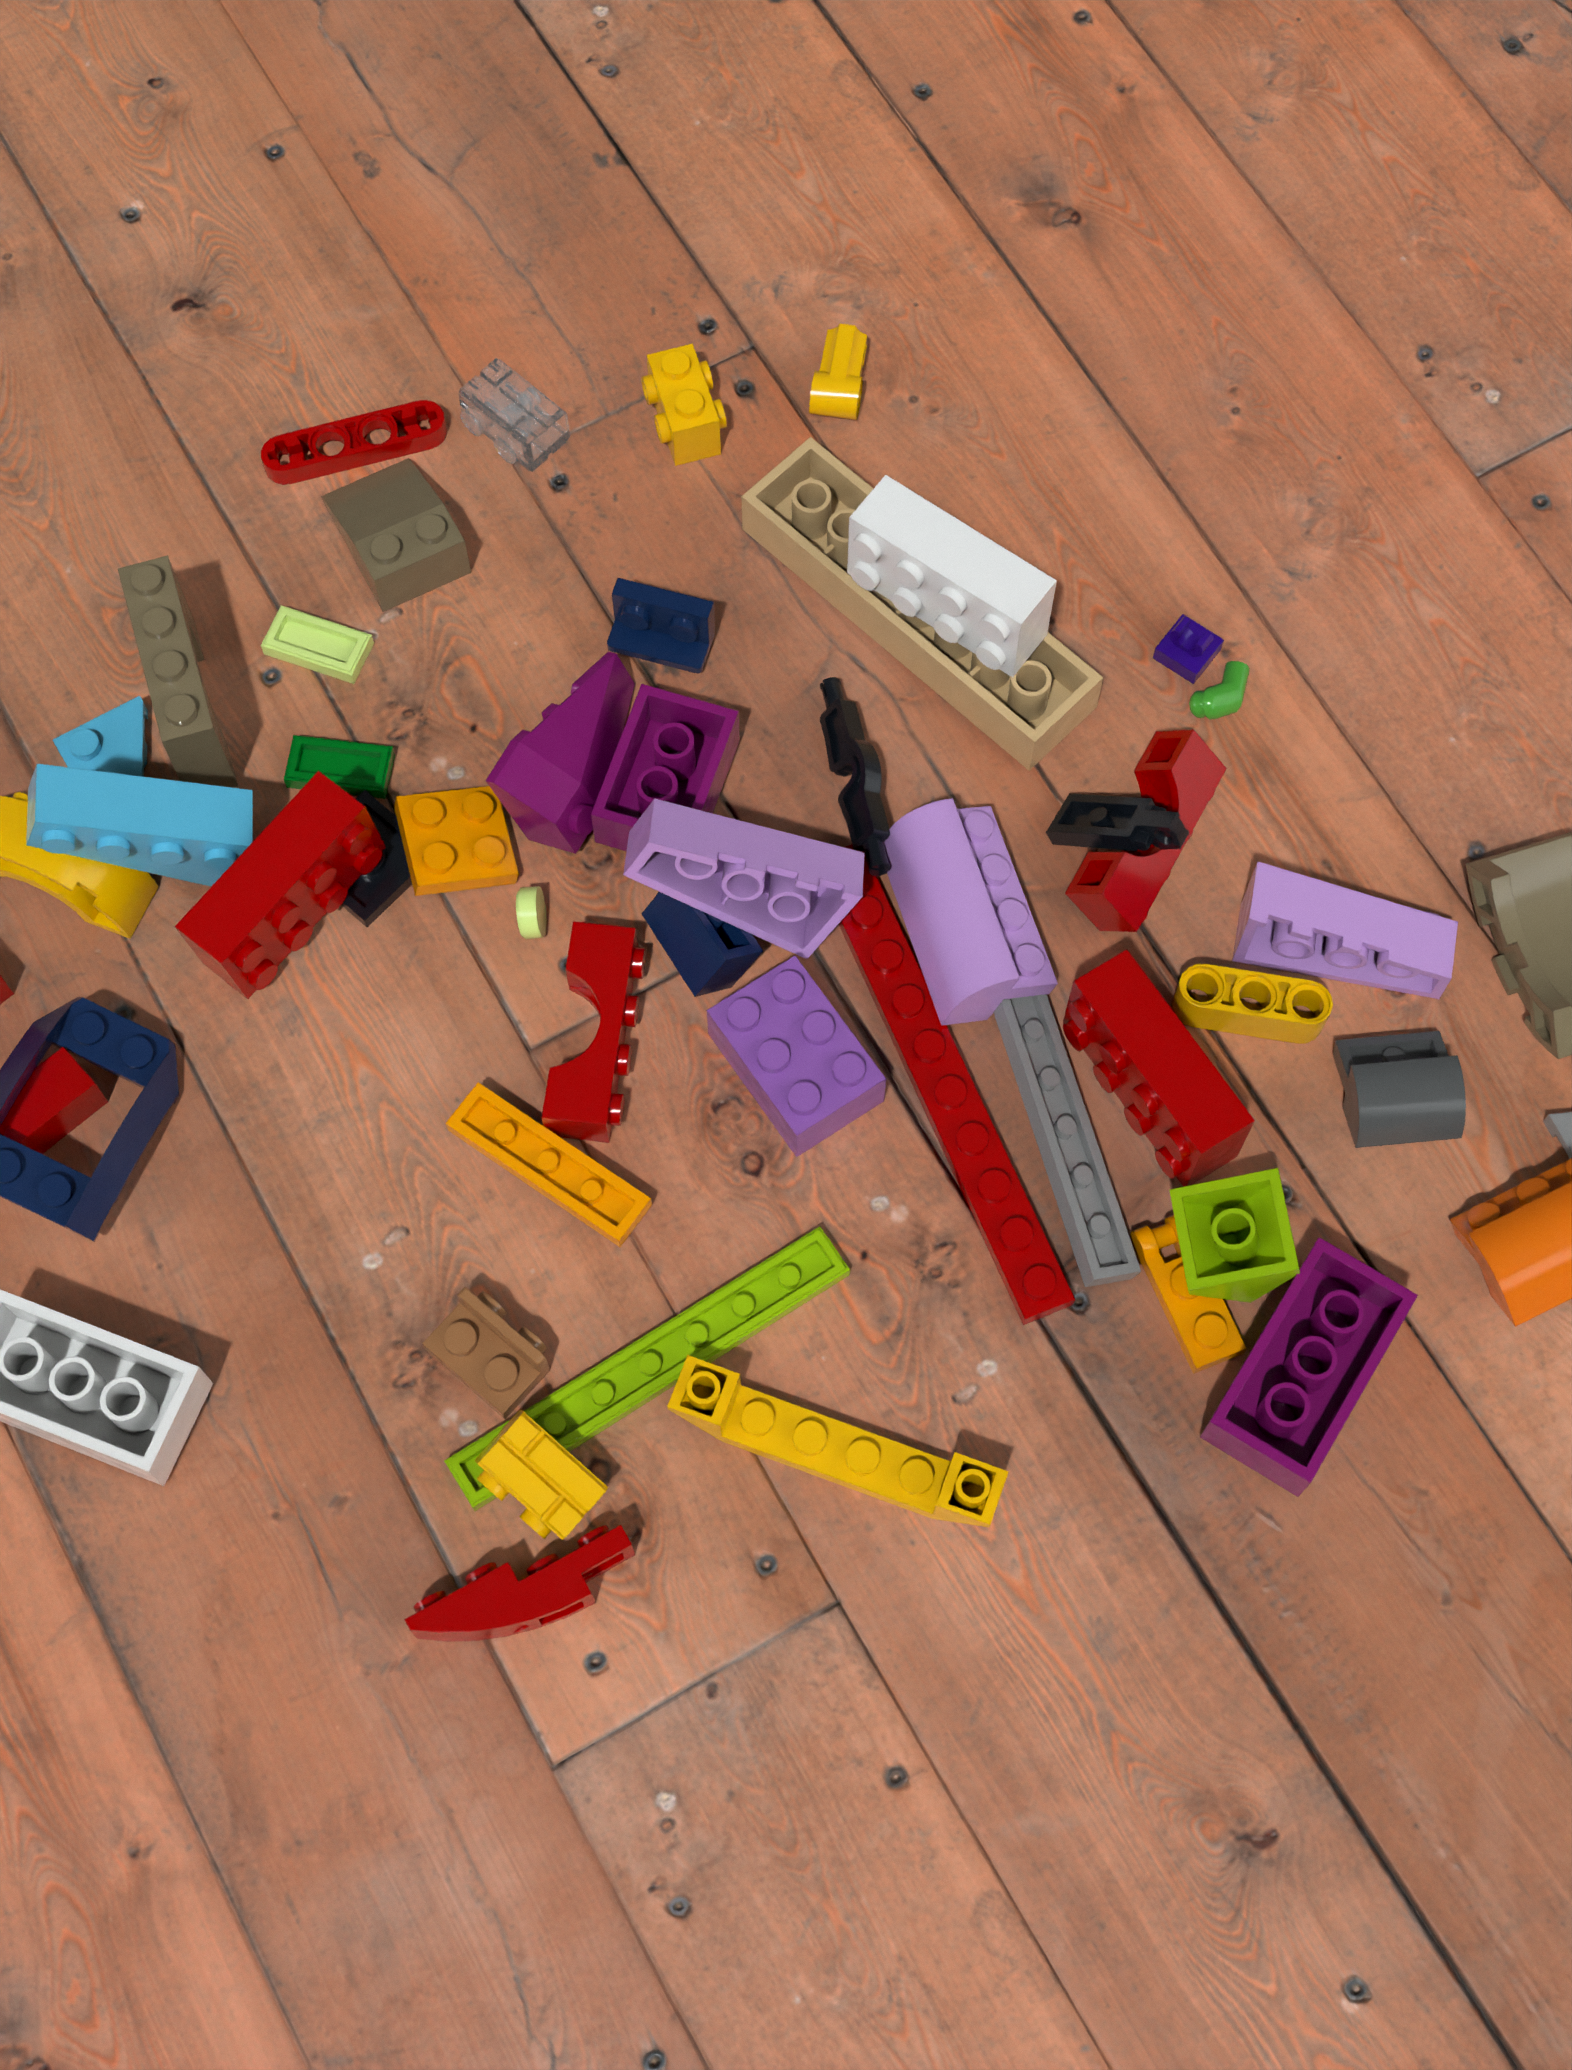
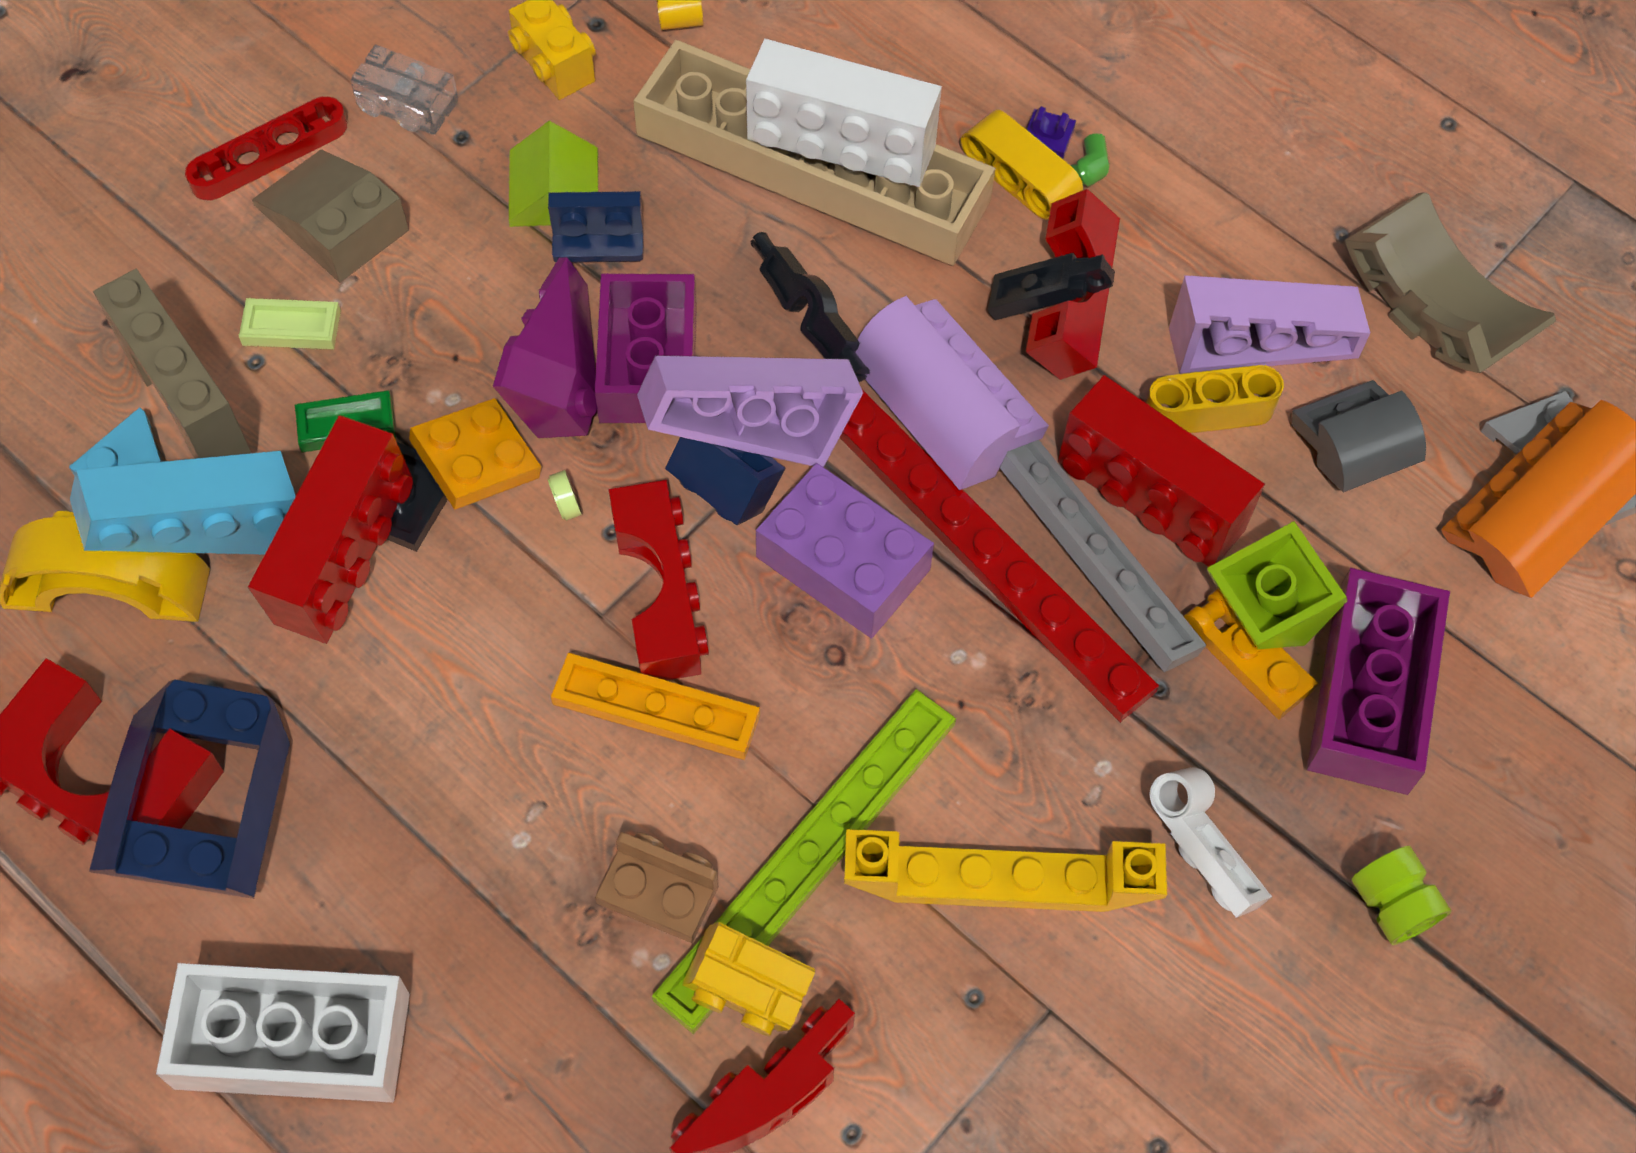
camera: 20 degrees left, 5 degrees down
(637, 544) = (544, 164): none -> lime slope
(1047, 1436) = (1202, 843): none -> white plate
(1143, 673) = (1021, 162): none -> yellow beam
(1241, 1593) = (1398, 890): none -> lime wheel

